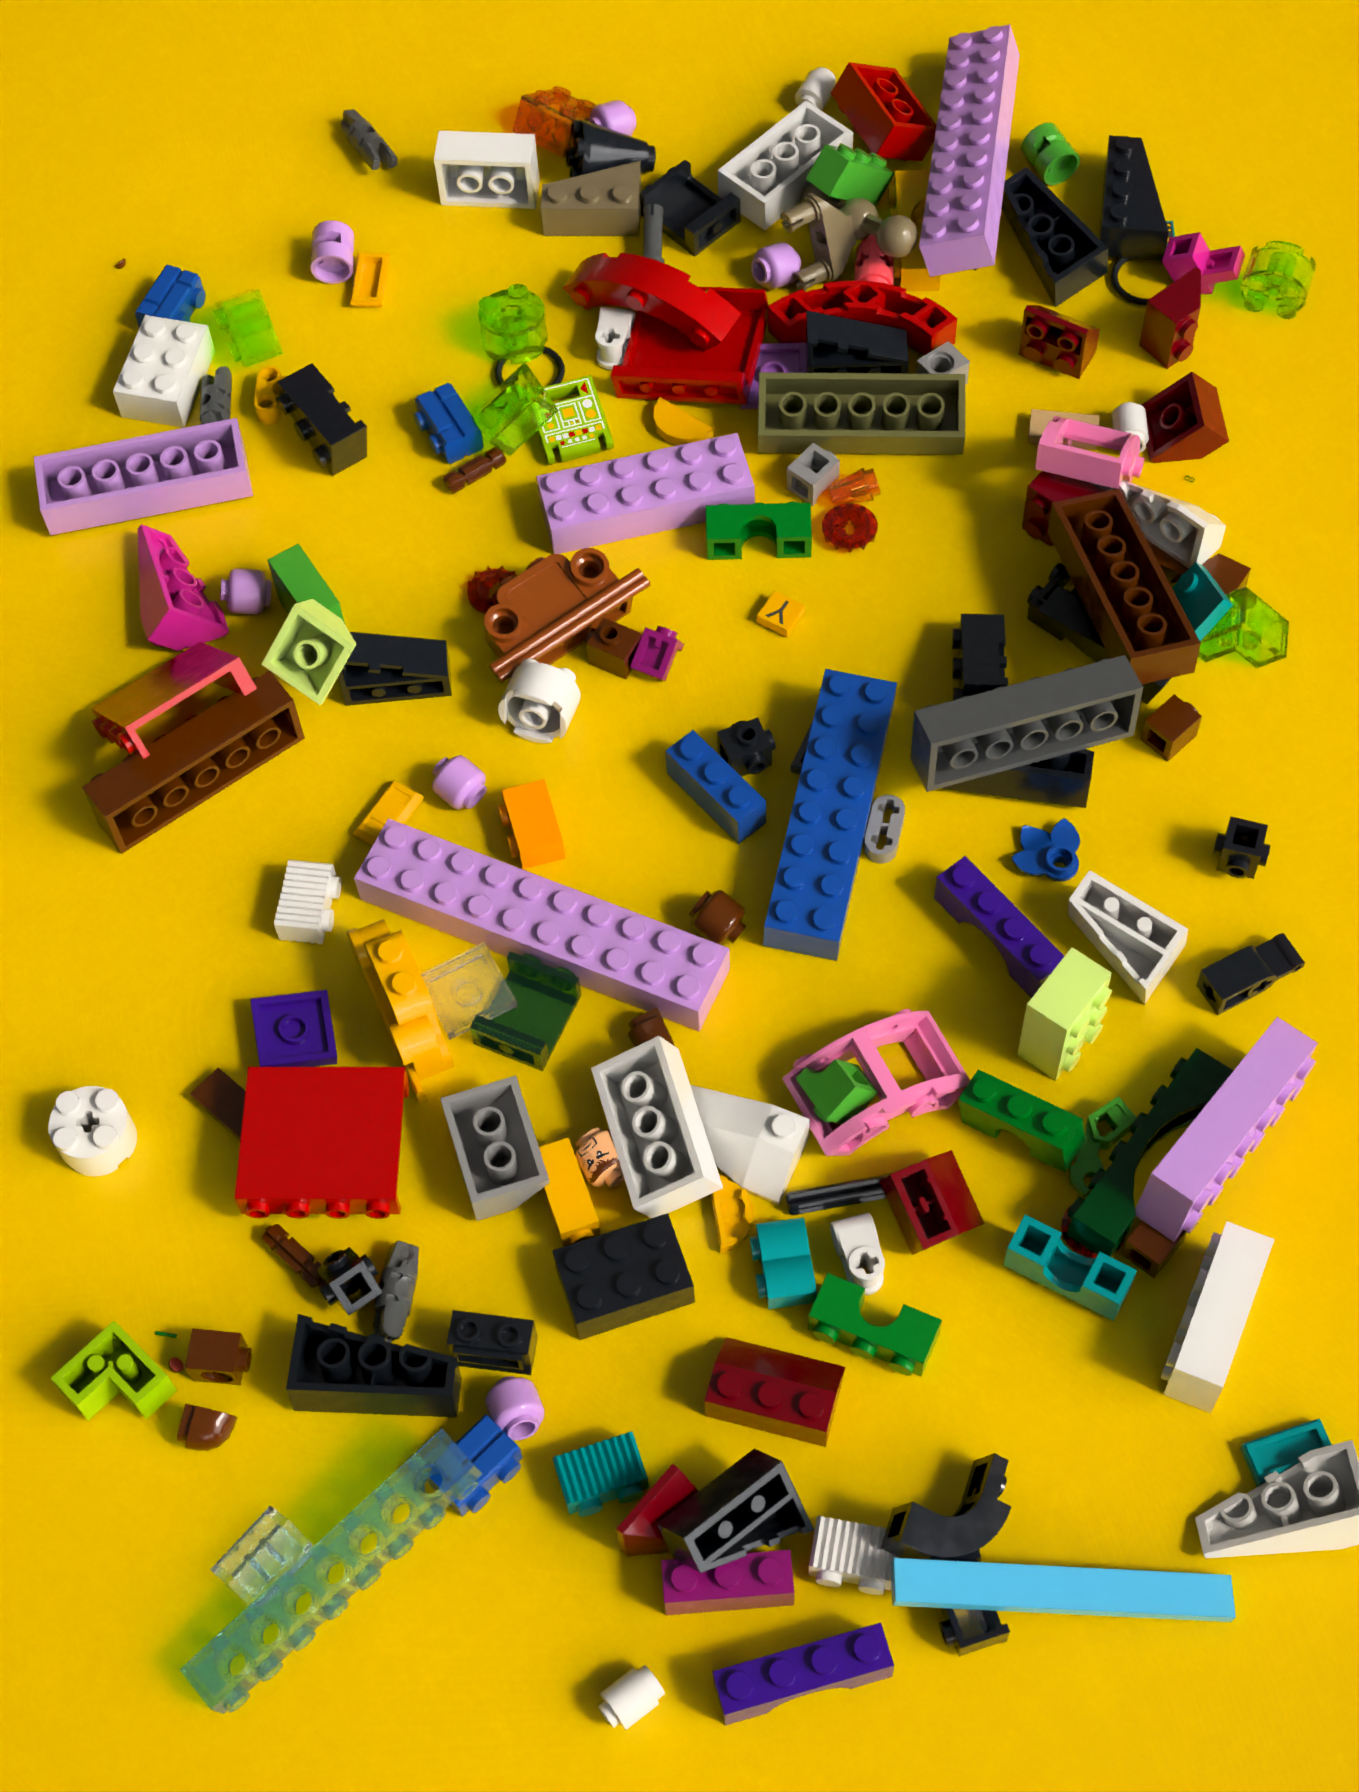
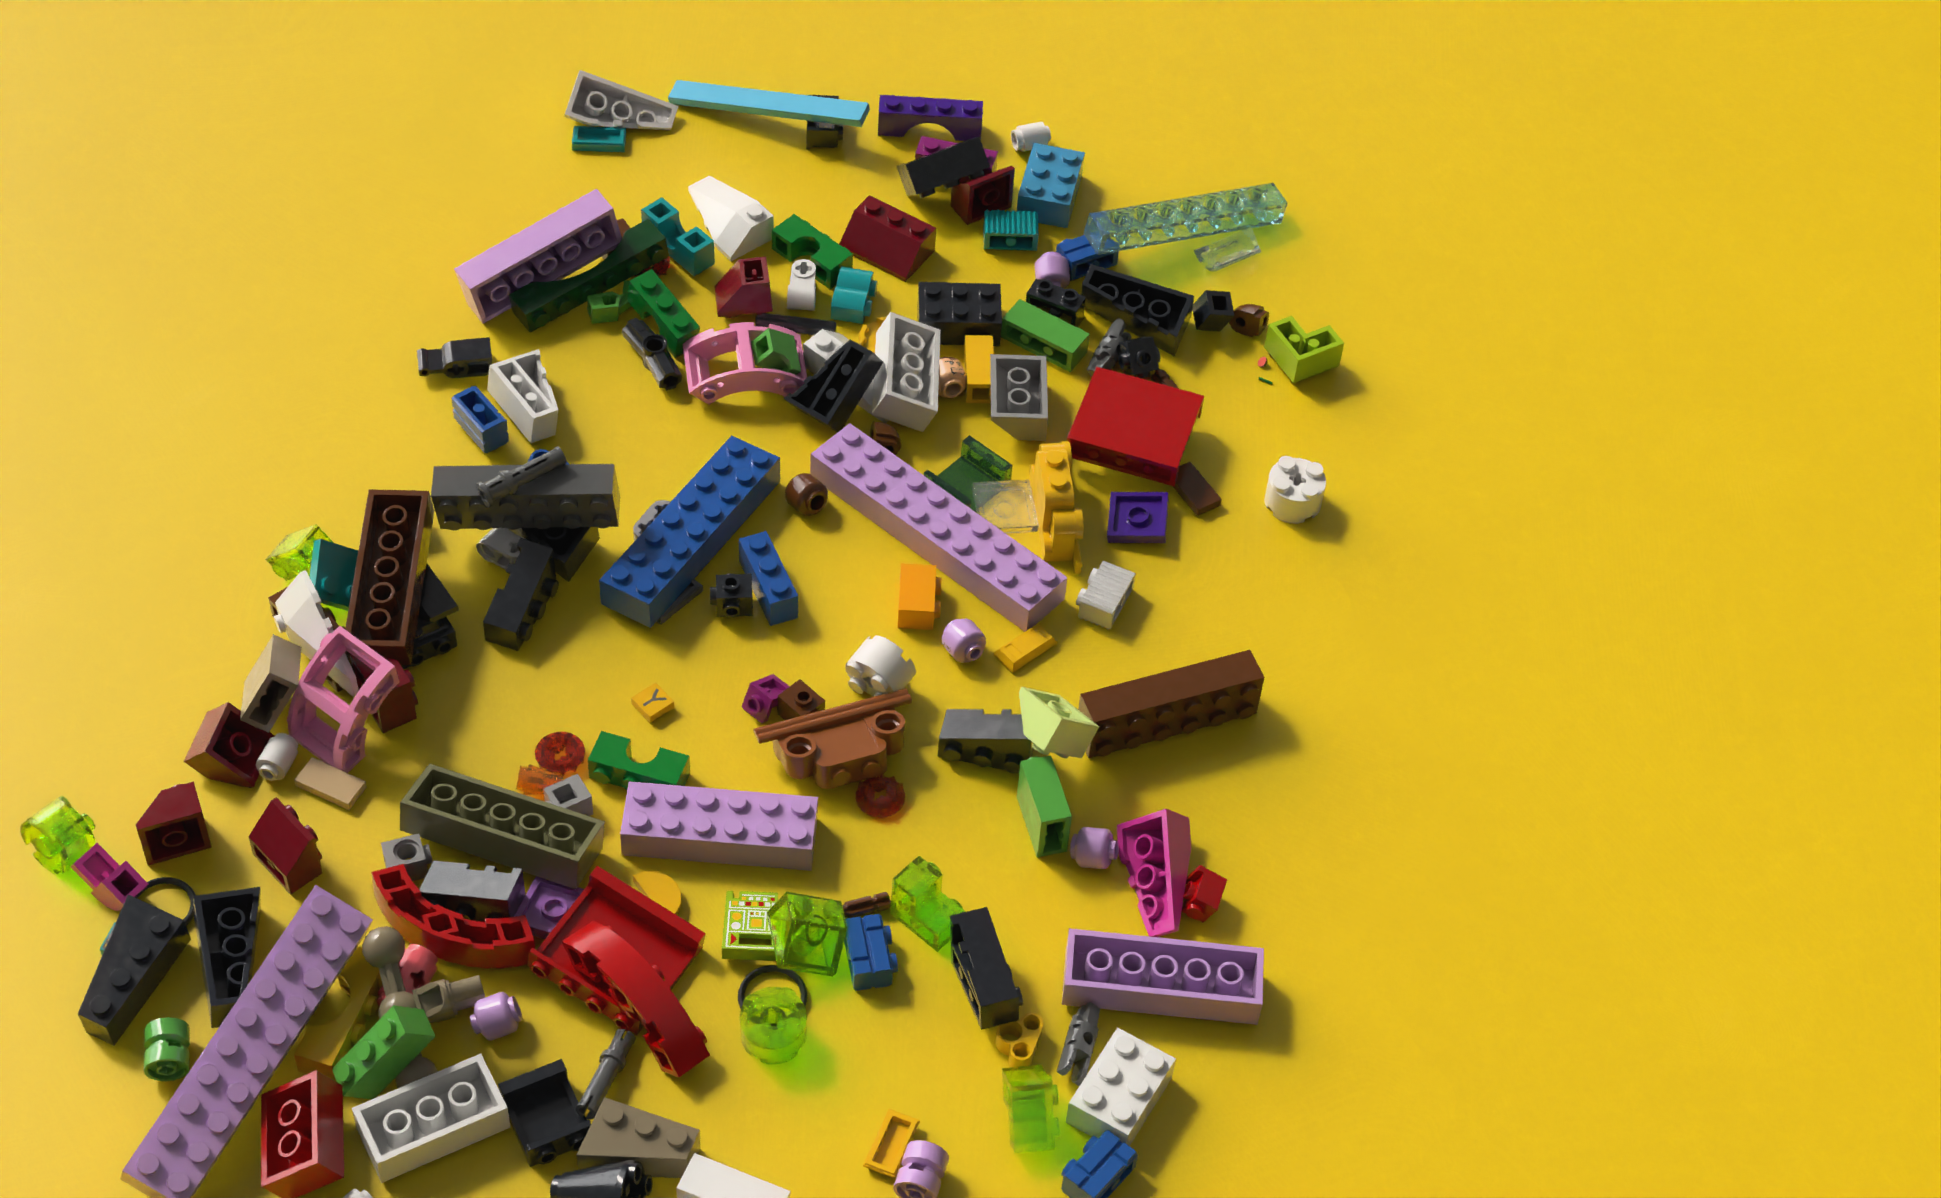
camera: 170 degrees left, 10 degrees down
(117, 575) = (1203, 893): none -> red brick
(162, 689) = (1179, 735): panel -> none
(217, 1357) = (1234, 348): reddish brown brick -> none
(258, 1402) = (1213, 310): none -> black brick
(404, 473) = (921, 904): none -> clear neon green brick
(491, 1284) = (1045, 335): none -> bright green brick
(567, 1590) = (1051, 184): none -> dark azure brick
(613, 335) = (688, 985): white piece -> none
(739, 1059) = (837, 386): none -> black wedge
(850, 1555) = (875, 157): white brick -> none
(923, 1534) = (812, 141): black arch -> none
(976, 900) = (616, 436): dark purple arch -> none
(988, 1052) = (654, 353): none -> black piece
(1018, 1355) = (732, 217): none -> white wedge
(1038, 676) = (509, 481): none -> dark grey pin
(1065, 1014) = (604, 342): yellowish green brick -> none
(1162, 877) = (480, 419): none -> blue brick
(1176, 459) = (271, 683): none -> dark tan brick
(1215, 1316) = (617, 172): white brick -> none
(1242, 848) = (411, 421): black brick -> none

